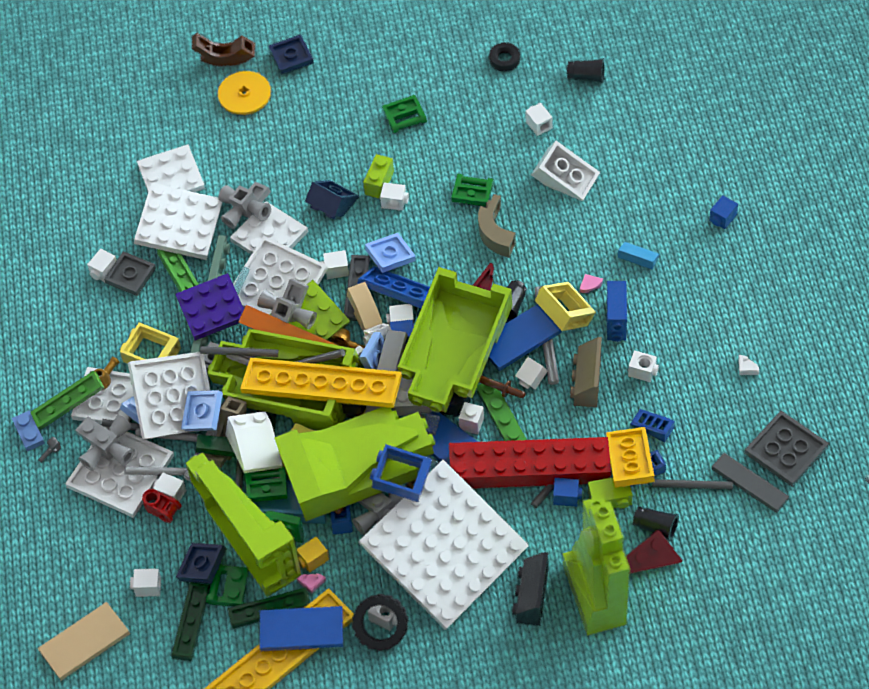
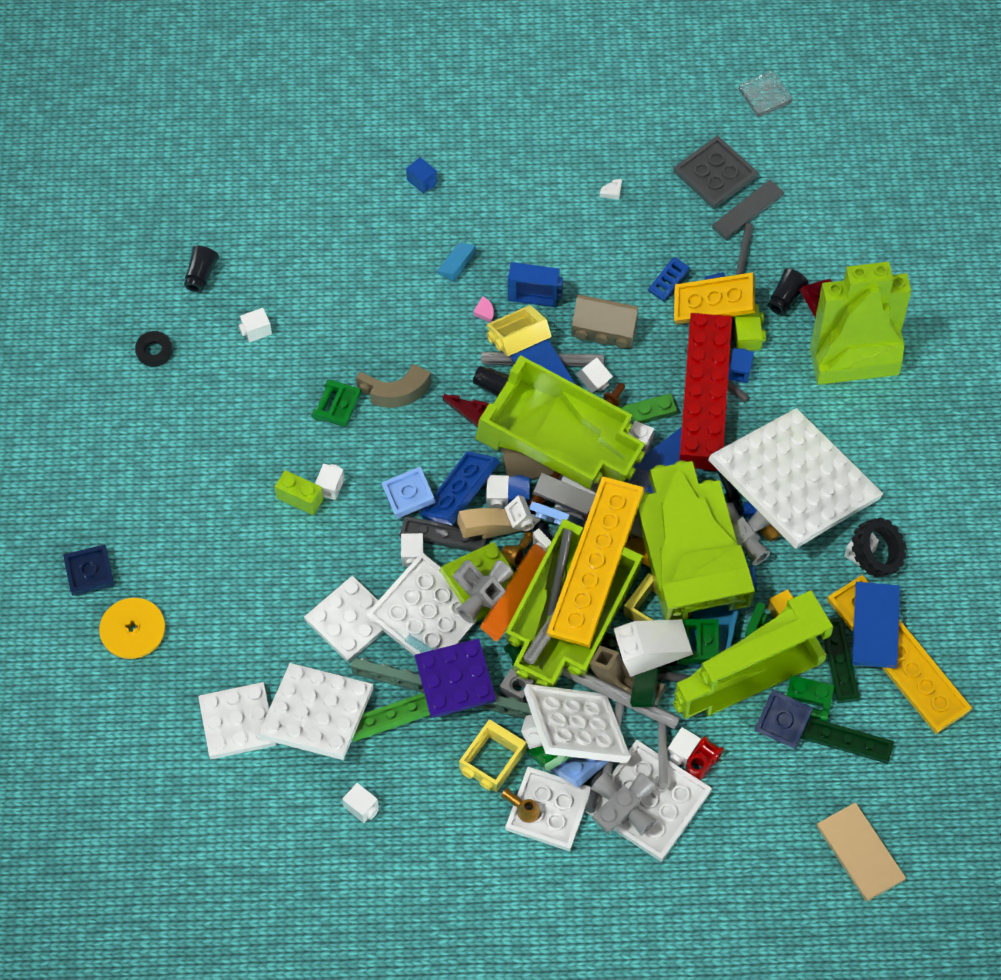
camera: 85 degrees left, 5 degrees up
(28, 431) = (577, 902): medium blue plate -> none
(54, 446) = (604, 872): dark grey hand -> none
(67, 400) = (553, 847): bright green plate -> none
(130, 273) = (378, 773): dark grey plate -> none
(146, 582) = (799, 779): white brick -> none
(202, 410) = (604, 692): light blue plate -> none
(223, 54) = (69, 638): reddish brown arch -> none
(239, 351) = (534, 647): dark grey bar -> none
(244, 203) = (307, 635): light grey brick -> none
(330, 198) = (317, 545): dark blue slope -> none
(401, 109) = (204, 459): green plate -> none
(405, 457) = (731, 467): blue window -> none
(531, 590) = (853, 406): black slope -> none
(565, 172) = (334, 311): white slope -> none
(641, 359) = (600, 283): white brick -> none

